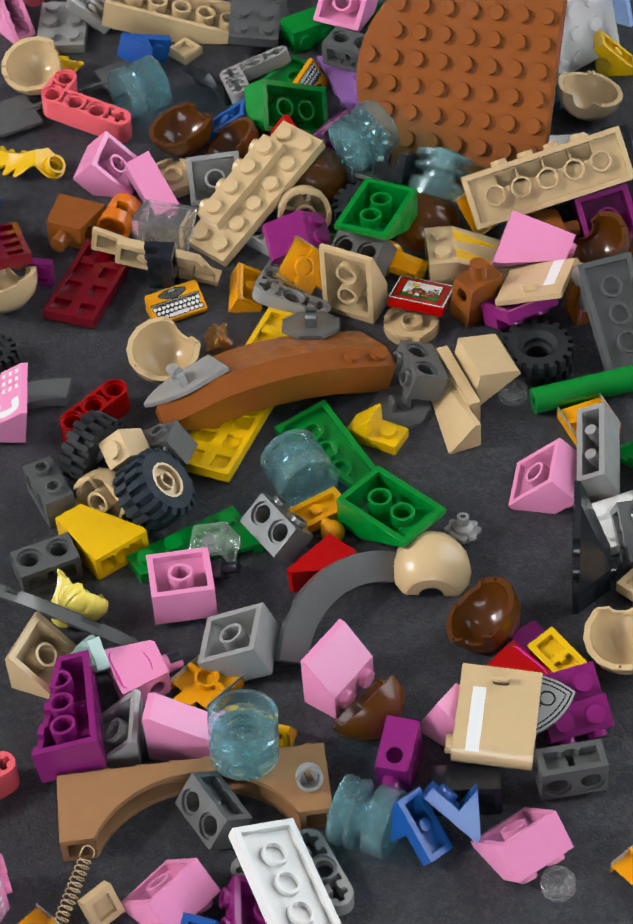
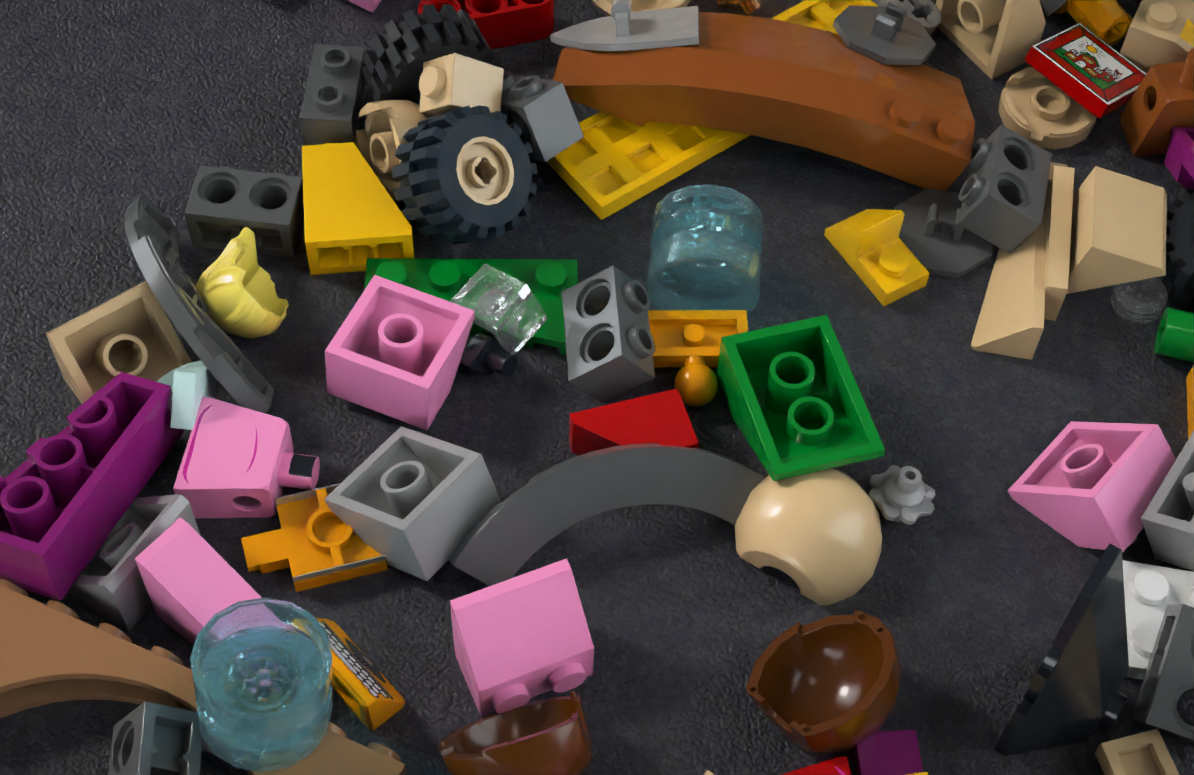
camera: 25 degrees right, 10 degrees up
(335, 440) = (794, 236): green wing -> none

